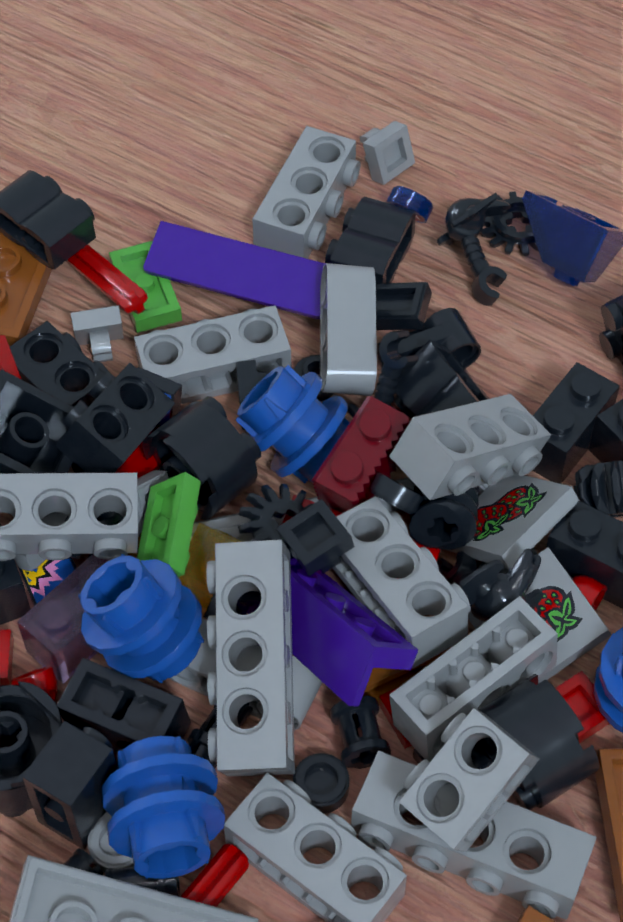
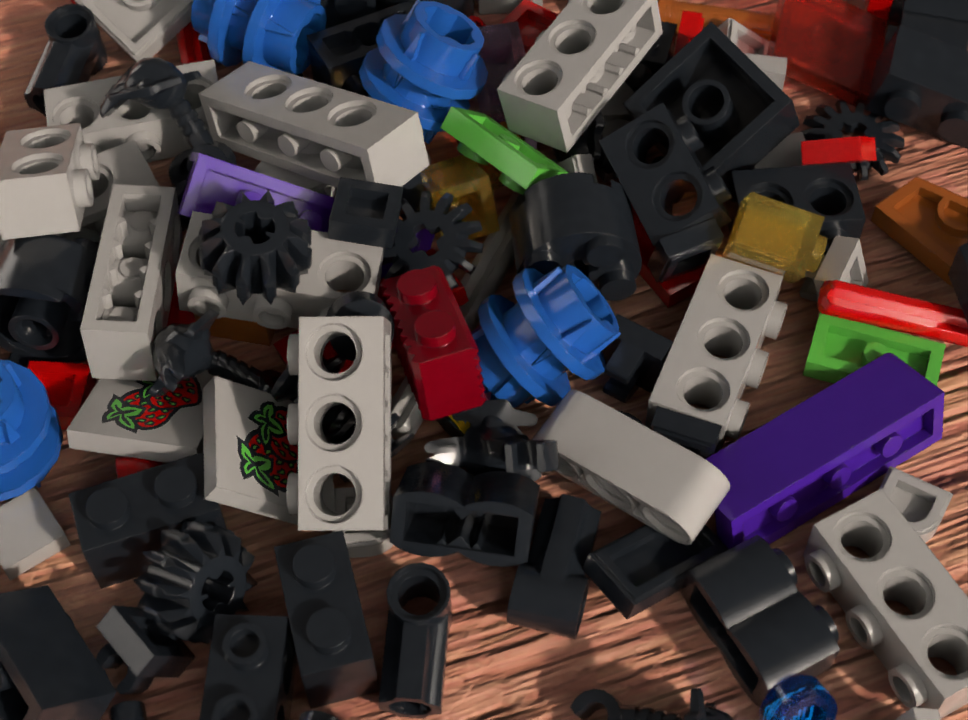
camera: 130 degrees right, 0 degrees up
(114, 340) = (776, 237): none -> clear yellow brick
(233, 224) = (917, 500): none -> light grey tile
(295, 332) = (690, 432): none -> black tile
(312, 797) = (162, 87): none -> black piece
(414, 553) = (255, 247): none -> black gear
(537, 376) = (415, 644): none -> black piece

